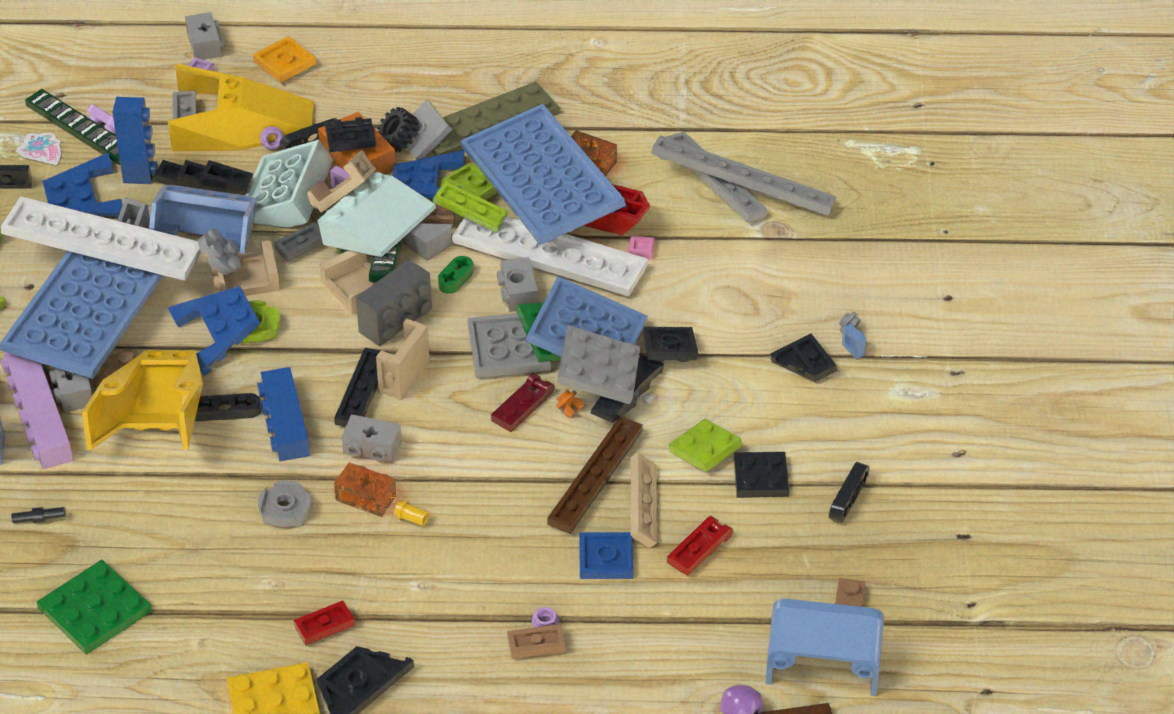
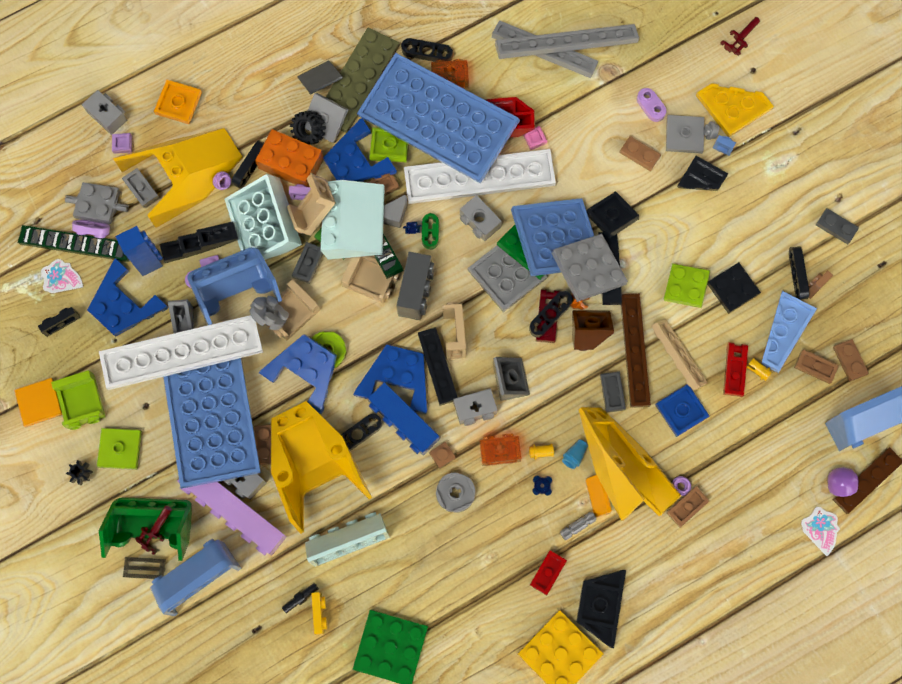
camera: 30 degrees left, 30 degrees up
(44, 534) = (318, 605): none -> yellow plate
(129, 479) = (346, 540): none -> light aqua slope
(130, 90) = (96, 203): none -> light grey plate
(299, 468) = (442, 455): none -> medium nougat plate
(319, 374) = (400, 369): none -> blue wing
(350, 134) = (290, 161): black plate -> none
(386, 544) = (538, 489): none -> clear blue plate
(395, 599) = (578, 525): none -> light grey axle
(430, 431) = (510, 378): none -> dark grey slope
(436, 260) = (412, 228): none -> clear blue plate
(443, 583) = (598, 497): none -> light orange slope
(445, 533) = (575, 454): none -> dark azure cone
(451, 98) = (319, 77): none -> dark grey piece
(470, 206) = (408, 173): lime tile -> none
(493, 557) = (624, 466): none -> yellow windscreen
(505, 391) = (564, 307): none -> black beam
(538, 499) = (612, 392): none -> dark grey plate
(555, 430) = (590, 329): none -> reddish brown slope
(572, 119) = (422, 44): none -> black beam
(730, 562) = (759, 369): none -> yellow pin
(750, 311) = (640, 153): none -> medium nougat plate
(785, 540) = (788, 325): none -> light blue wing
(798, 583) = (816, 366): none -> medium nougat plate
(799, 275) = (649, 104): none -> lavender plate
(816, 315) = (685, 134): none -> light grey plate
(860, 504) = (818, 282): none -> medium nougat plate
(895, 315) = (733, 106): none -> yellow plate
(934, 475) = (837, 226): none -> dark grey plate
(954, 260) = (739, 37): none -> dark red piece

